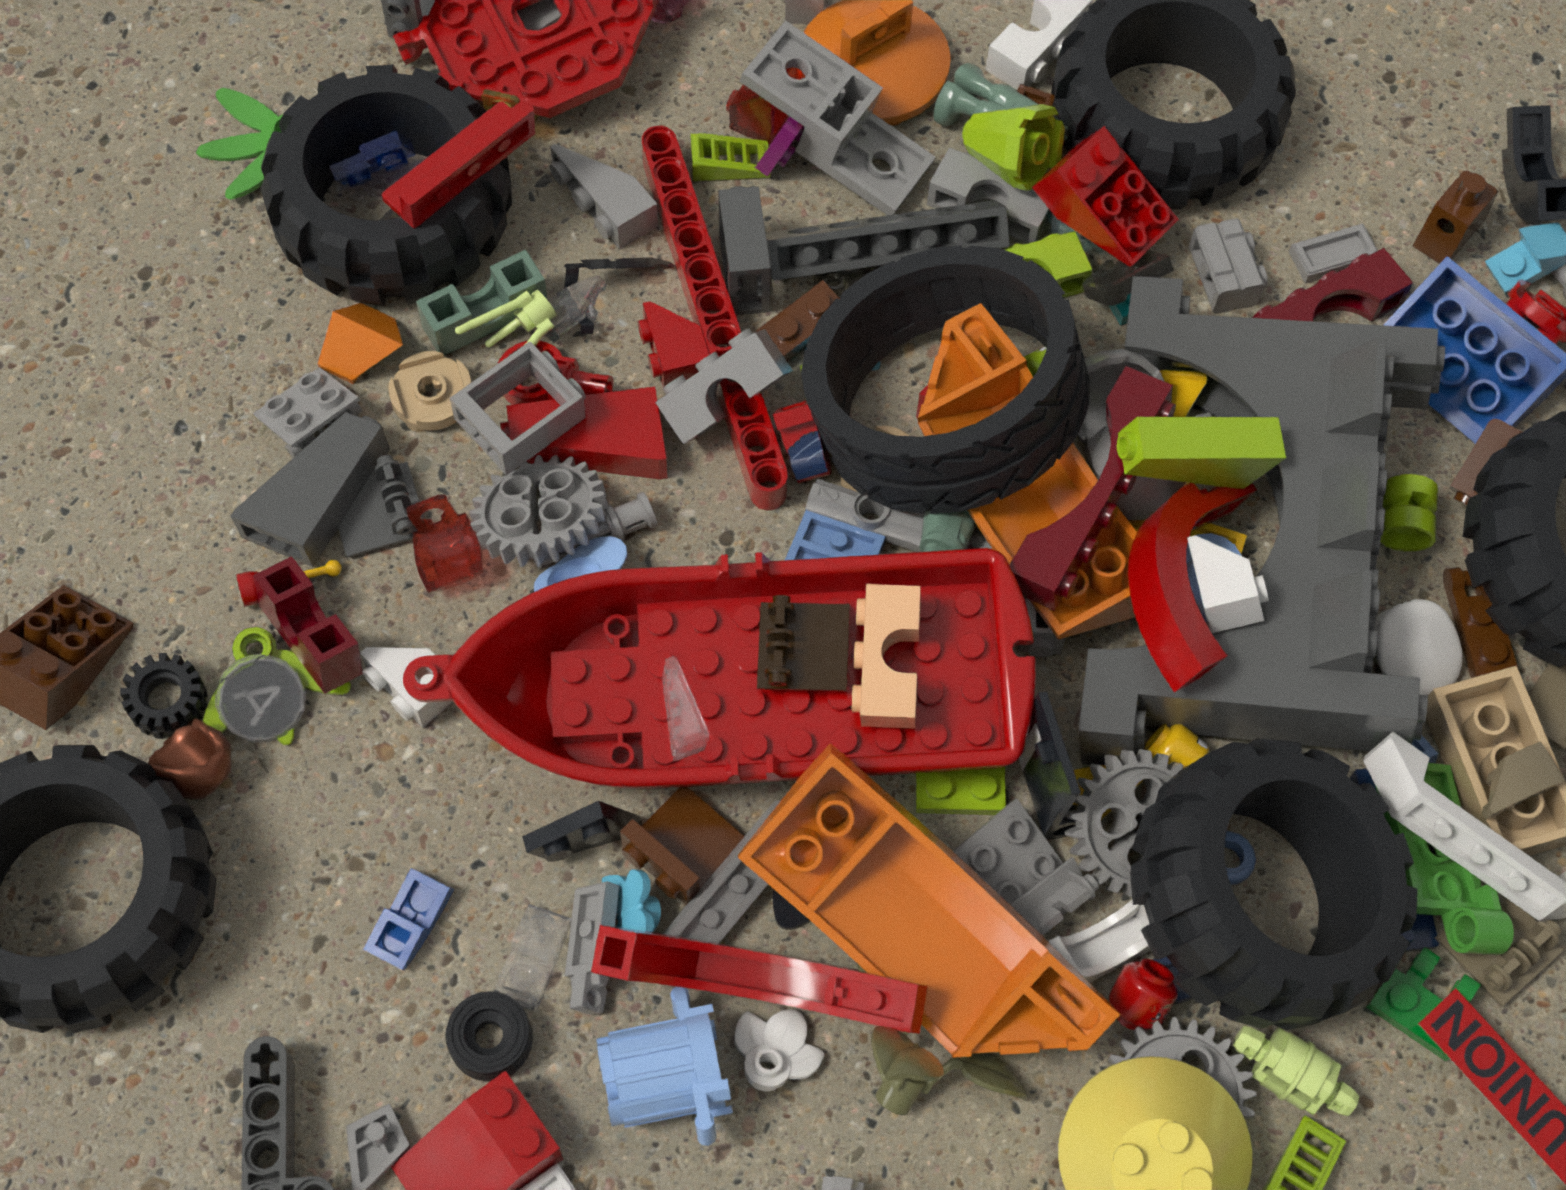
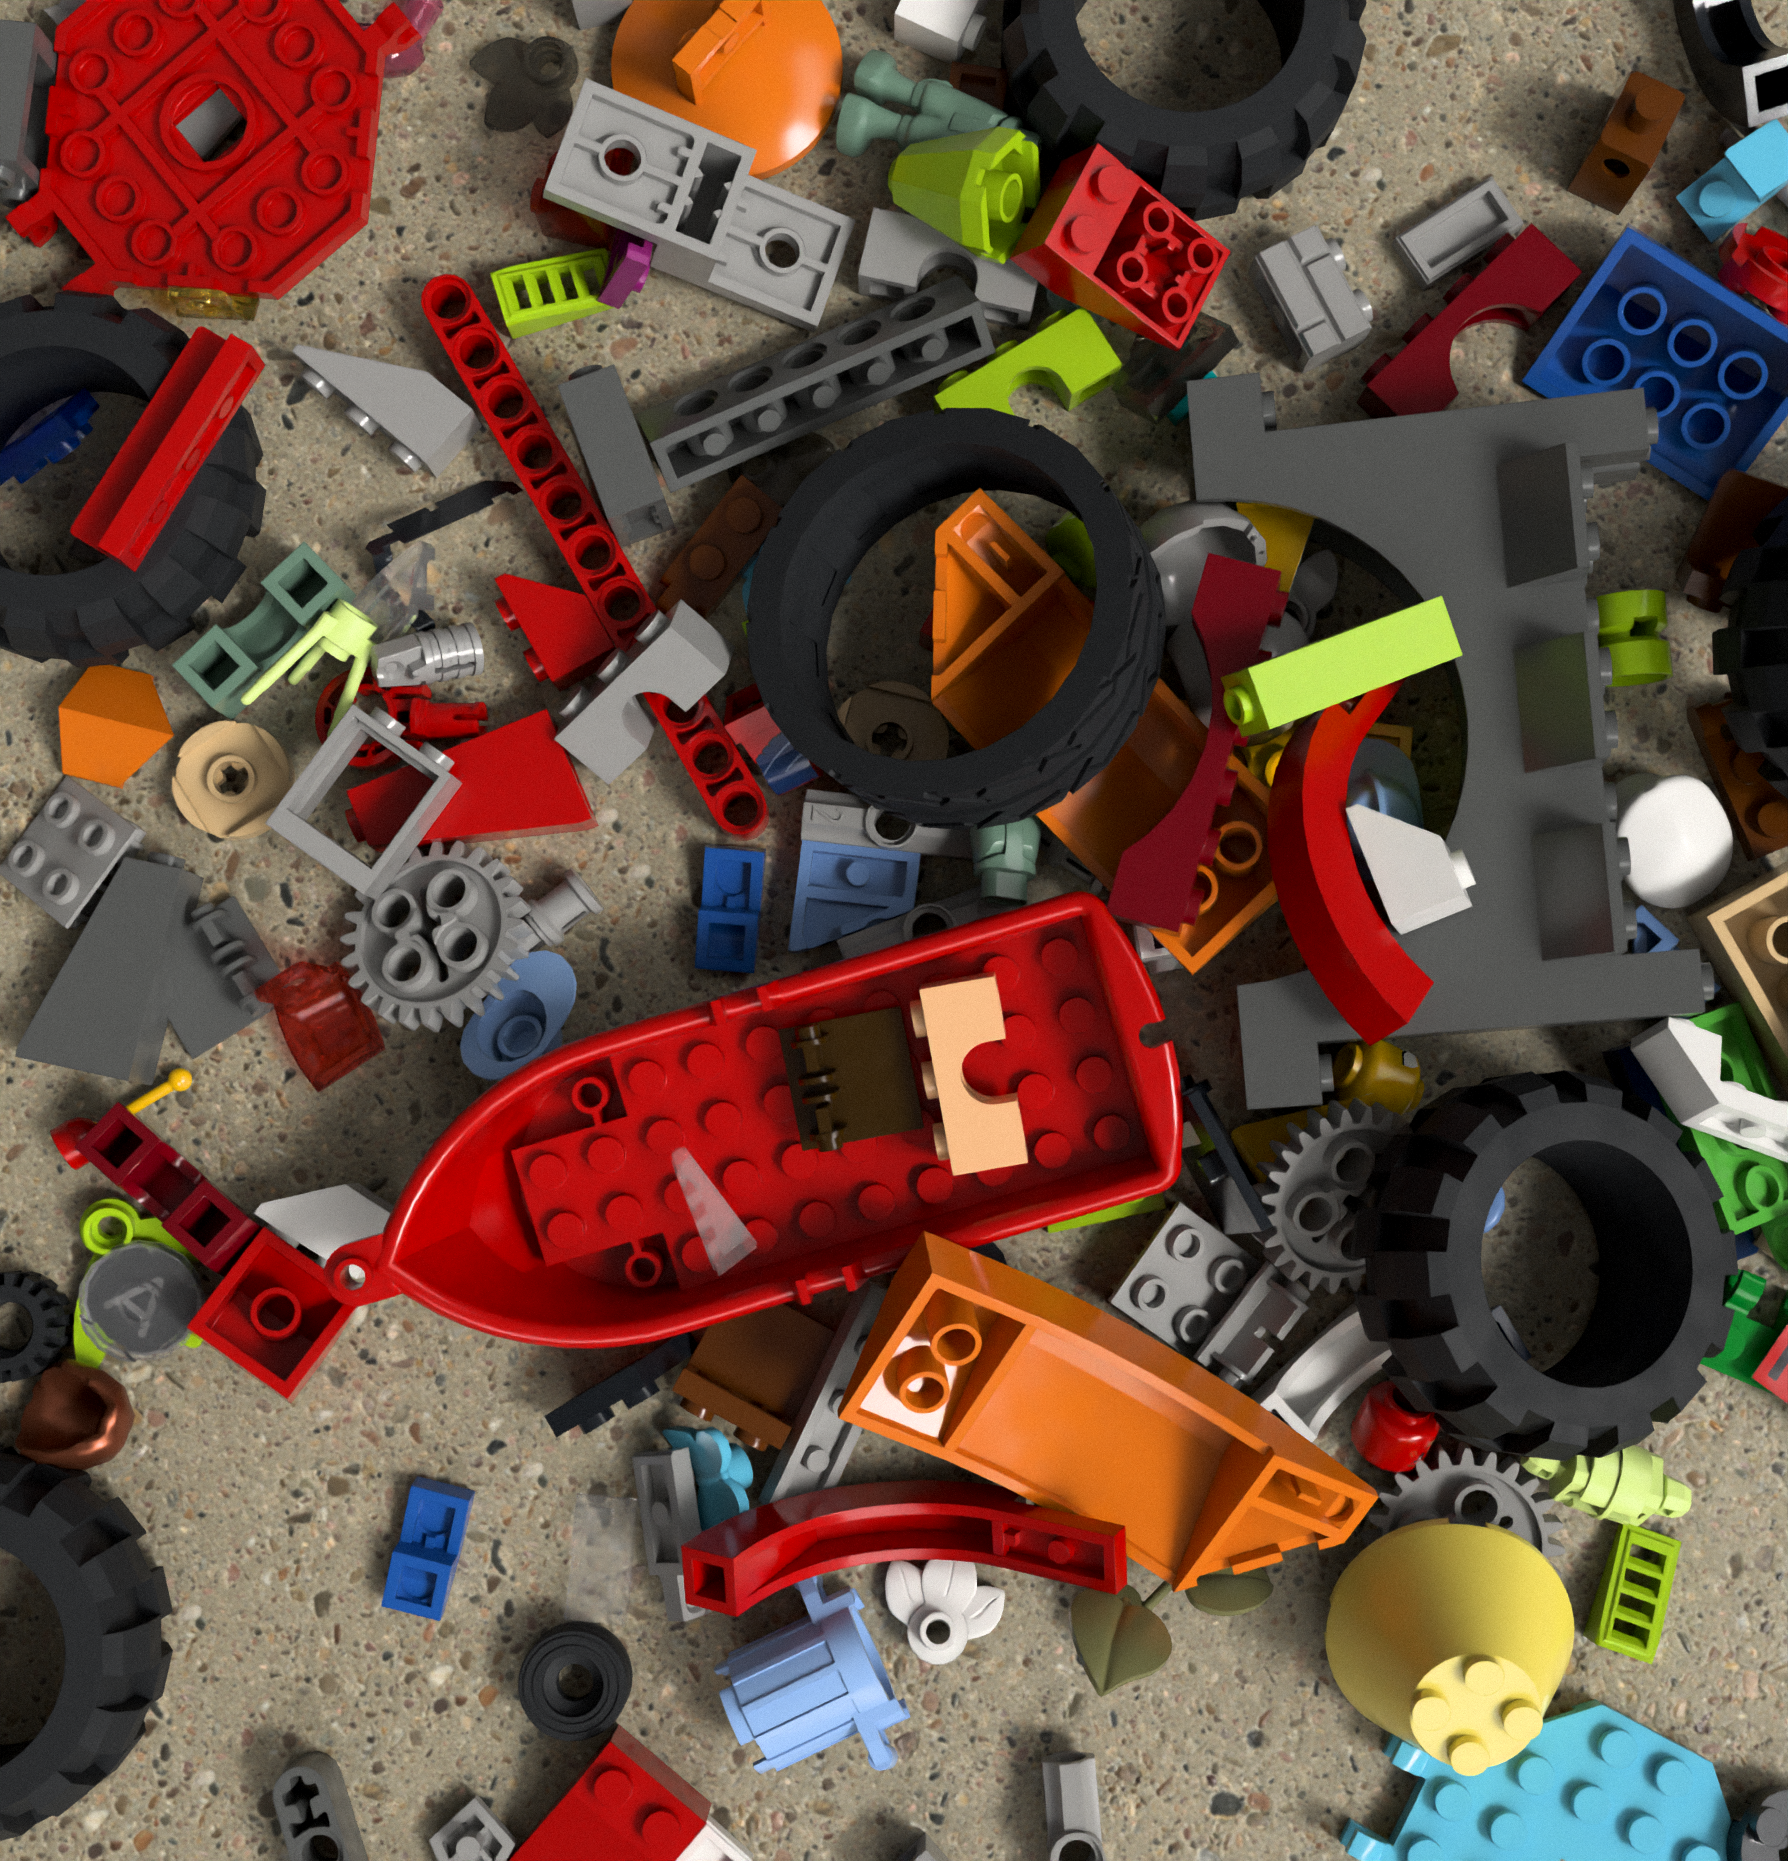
camera: 10 degrees left, 20 degrees up
(351, 727) = (273, 1316): none -> red slope
(584, 342) = (428, 657): none -> light grey hinge
(740, 39) = (521, 90): none -> clear smoke plate
(748, 533) = (730, 908): none -> blue slope

